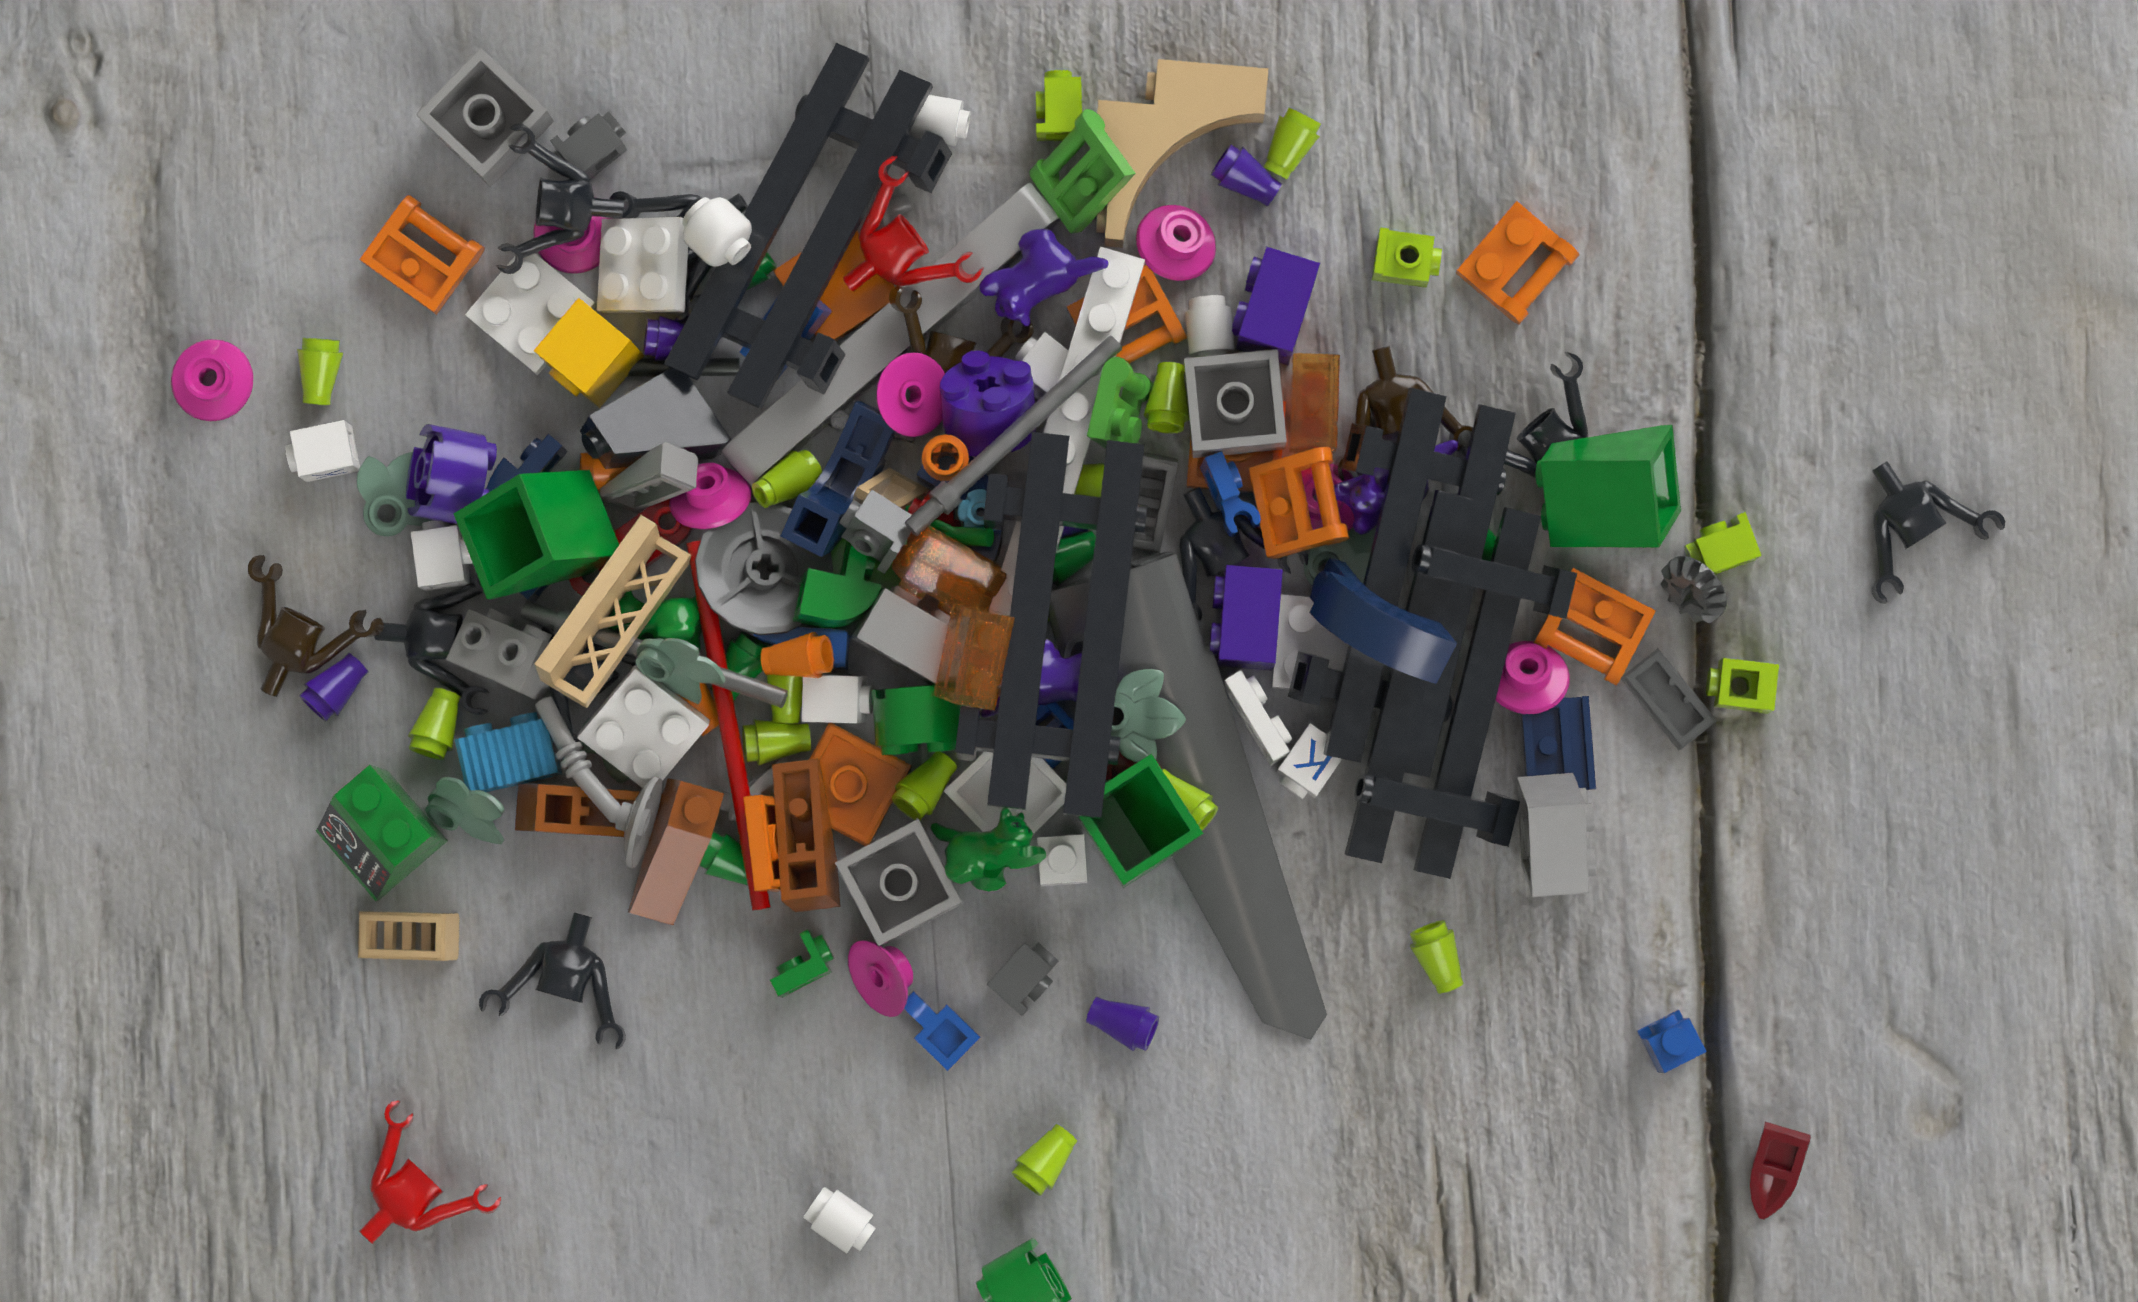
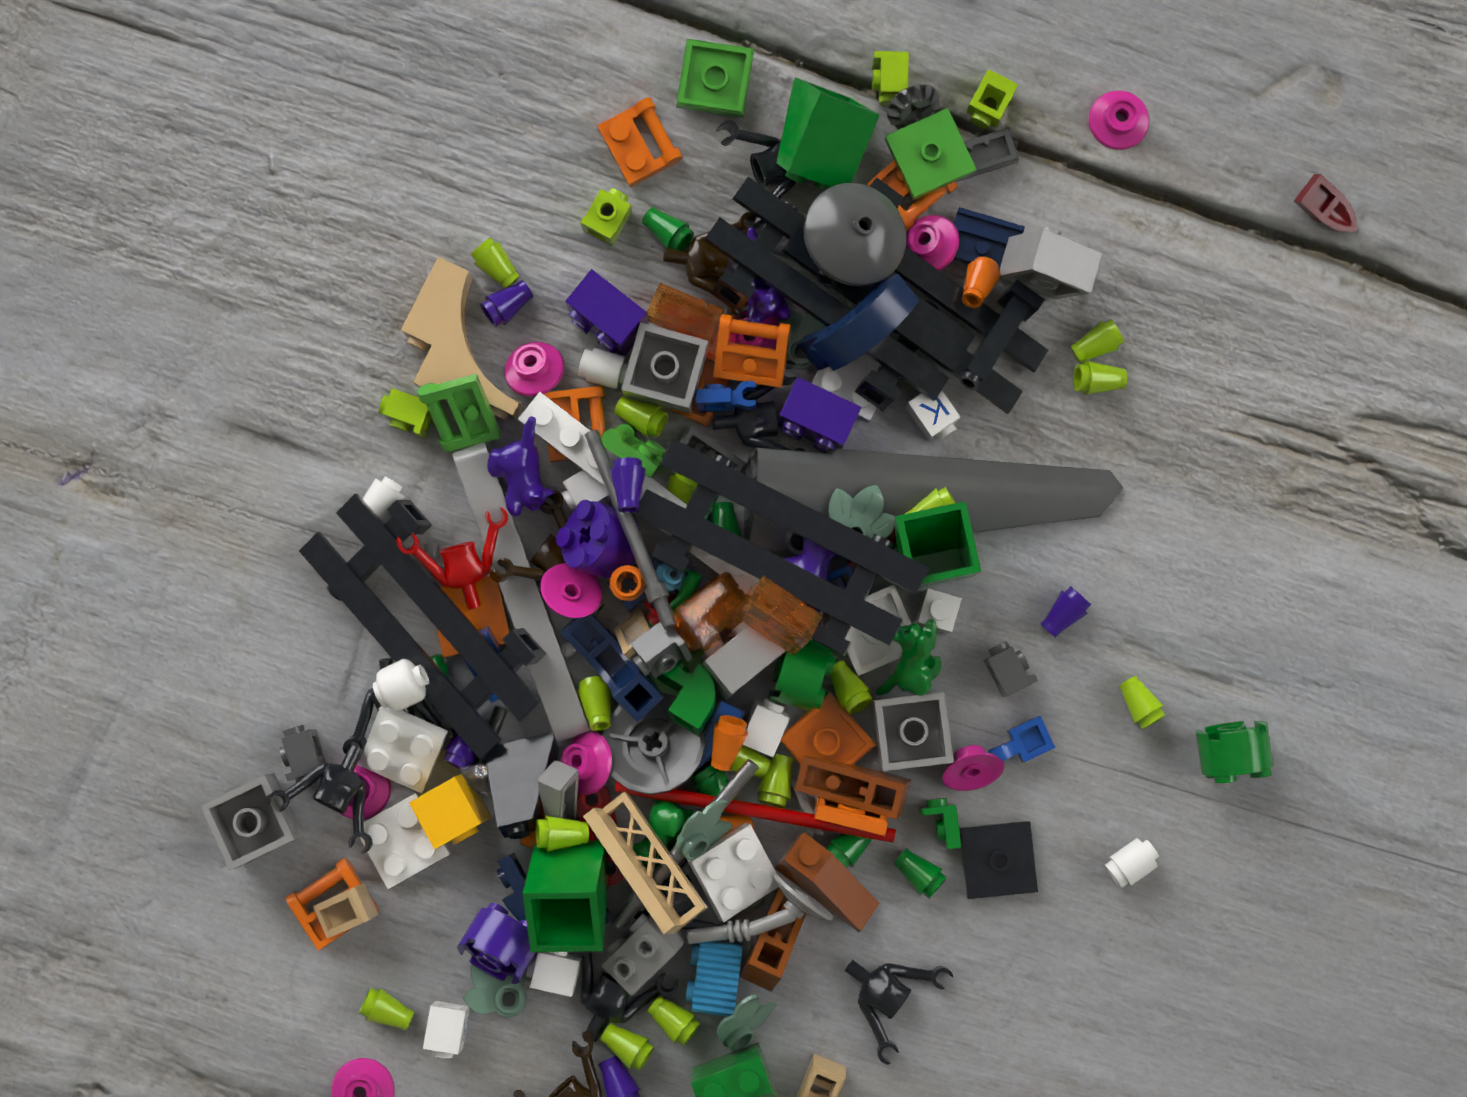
camera: 75 degrees left, 0 degrees up
(383, 681) = (627, 1046): none -> lime cone
(420, 273) = (345, 910): none -> tan slope
(610, 495) = (560, 833): none -> lime cone
(638, 370) = (478, 780): none -> clear bar
(728, 962) = (920, 873): none -> green cone
(782, 1053) = (998, 859): none -> black plate
(1068, 410) = (628, 483): none -> dark purple cone
(1248, 700) = (905, 434): white plate -> none
(1416, 343) = (668, 229): none -> green cone
(1460, 569) = (842, 246): none -> dark grey dish
(1484, 937) = (1098, 341): none -> lime cone
(1501, 756) = (980, 279): none -> orange cone
(1636, 325) = (715, 78): none -> bright green plate
(1640, 633) = (930, 154): none -> bright green plate
(1671, 1041) = (1217, 242): blue brick -> none
(1766, 865) = (1113, 132): none -> dark pink piece

